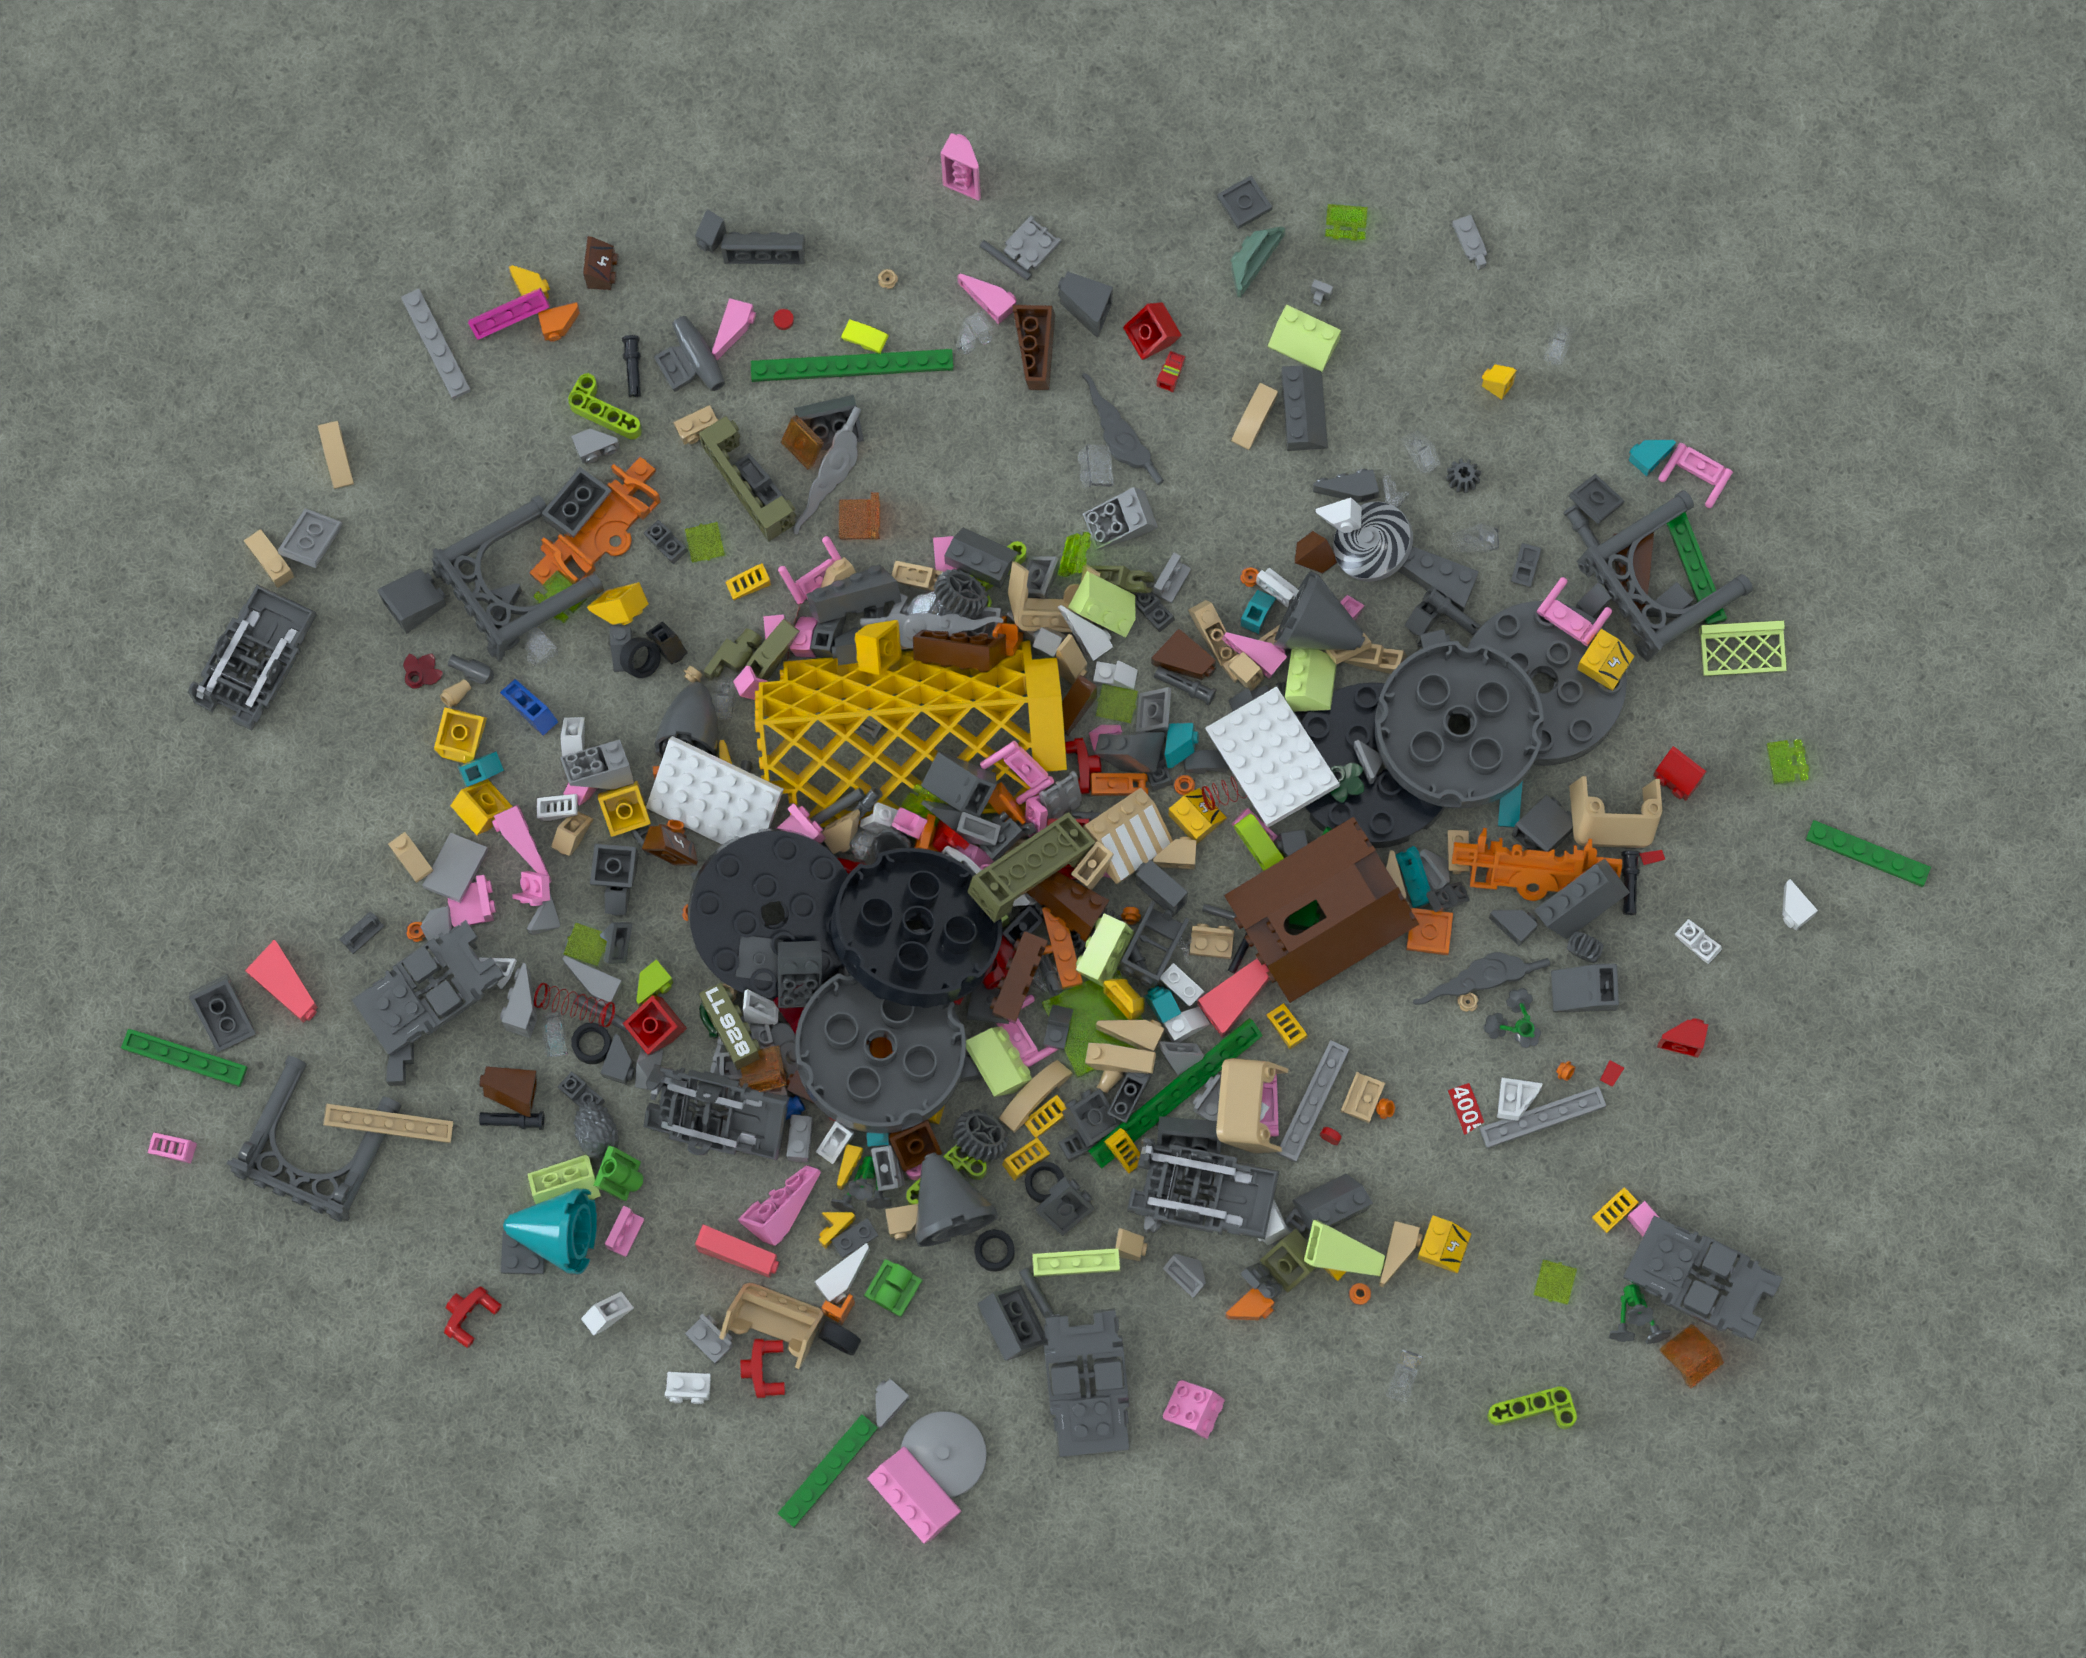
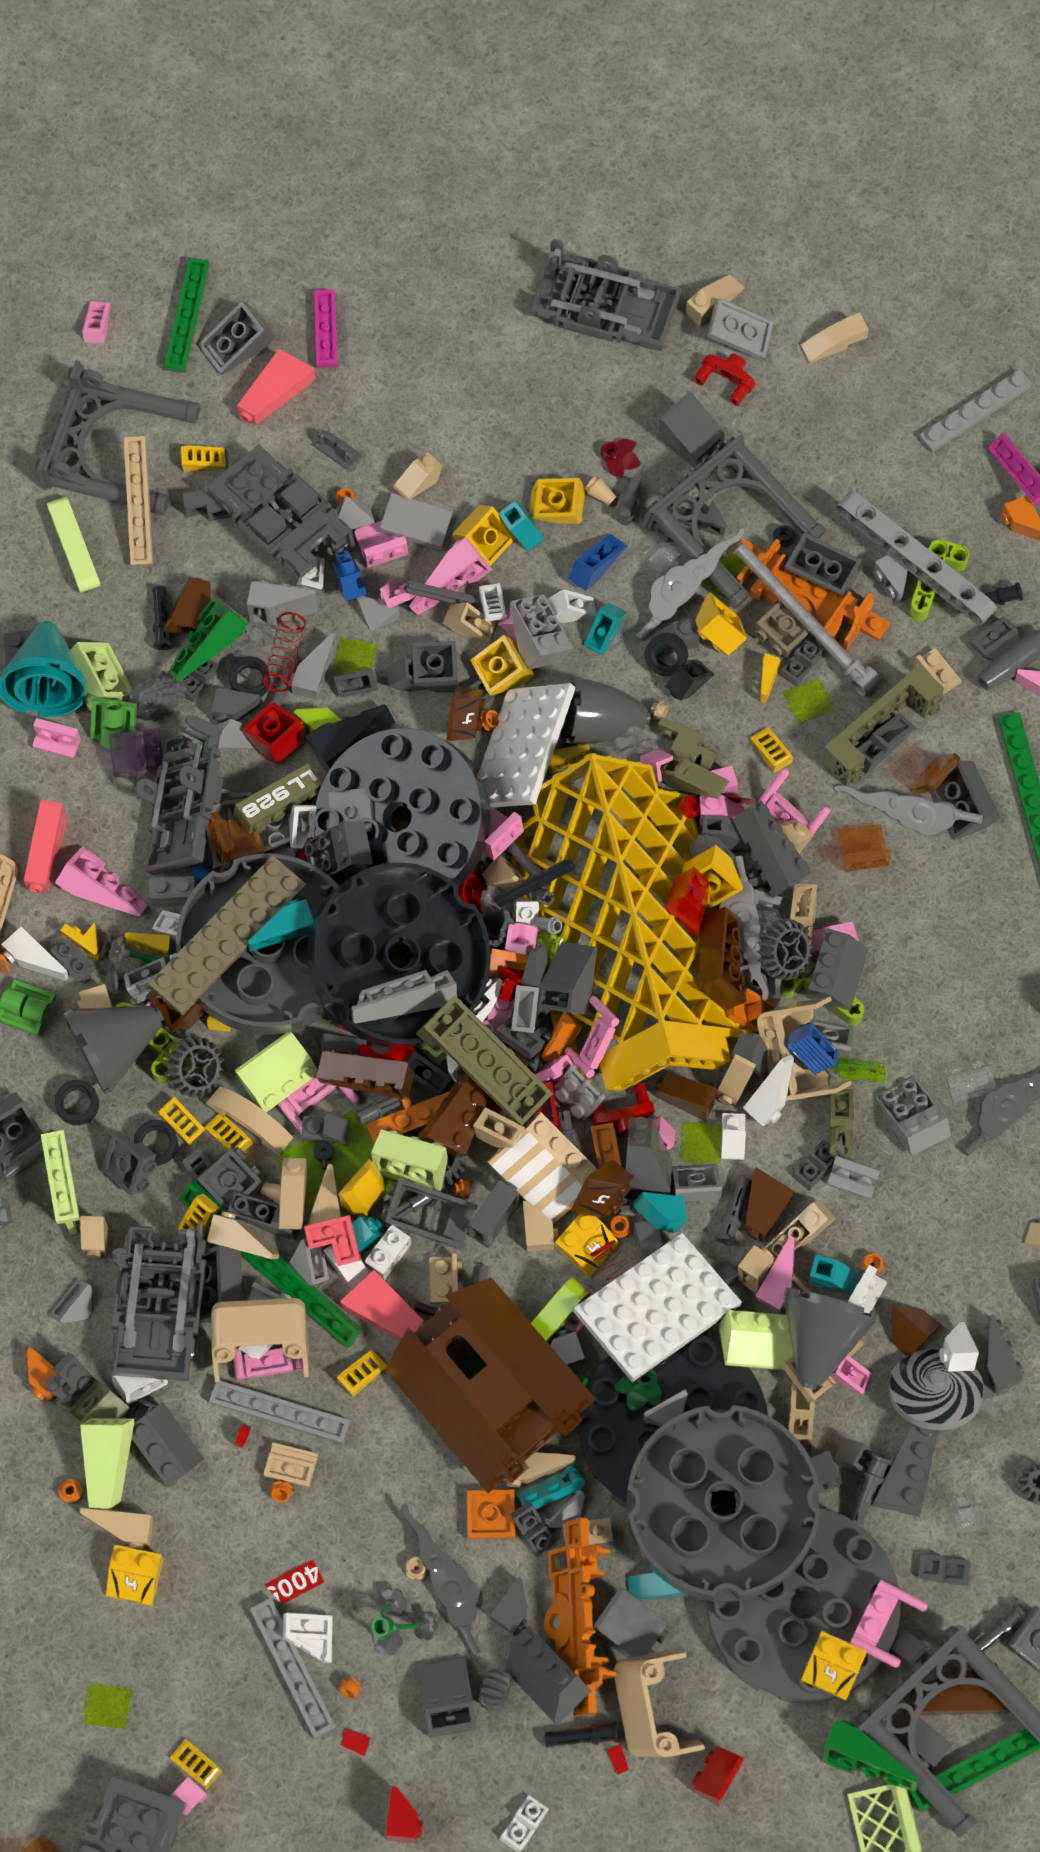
camera: 80 degrees right, 5 degrees down
(226, 926) = (325, 328): none -> dark pink plate
(343, 1077) = (194, 465): none -> yellow slope
(349, 553) = (730, 368): none -> red connector
(417, 1194) = (73, 544): none -> yellowish green beam
(507, 934) = (348, 576): none -> blue hips
(533, 530) = (784, 530): none -> black plate
(544, 850) = (439, 594): none -> dark grey axle
(550, 1069) = (215, 632): none -> green wedge
(572, 631) = (681, 584): none -> light grey piece
(586, 419) = (916, 558): none -> light grey beam
(600, 709) = (605, 628): none -> teal slope
(630, 548) = (781, 630): none -> dark tan plate
(654, 1156) = (135, 752): none -> clear purple slope
(673, 571) = (770, 668): none -> yellow slope
(680, 964) = (335, 738): none -> black wedge
(692, 489) = (862, 678): none -> flat silver piece
(798, 660) = (689, 807): none -> red tile
(860, 800) = (534, 882): none -> black axle
(870, 1021) = (288, 923): none -> teal slope
(872, 1078) = (226, 935): none -> dark tan plate
(900, 666) = (689, 899): none -> red slope
(901, 793) = (551, 925): none -> light grey pin
(961, 923) = (404, 996): none -> light grey wedge
(1053, 589) = (812, 1048): none -> blue brick
(1084, 1030) = (324, 1157): none -> black piece
(1104, 604) = (804, 1105): yellowish green slope -> none
(1149, 1115) = (236, 1234): none -> tan slope
(1158, 786) = (603, 1191): none -> reddish brown slope
(1165, 1022) = (338, 1233): none -> coral plate
(1639, 1315) = (68, 1798): dark grey plant -> none
(1671, 660) = (853, 1750): none -> green wedge

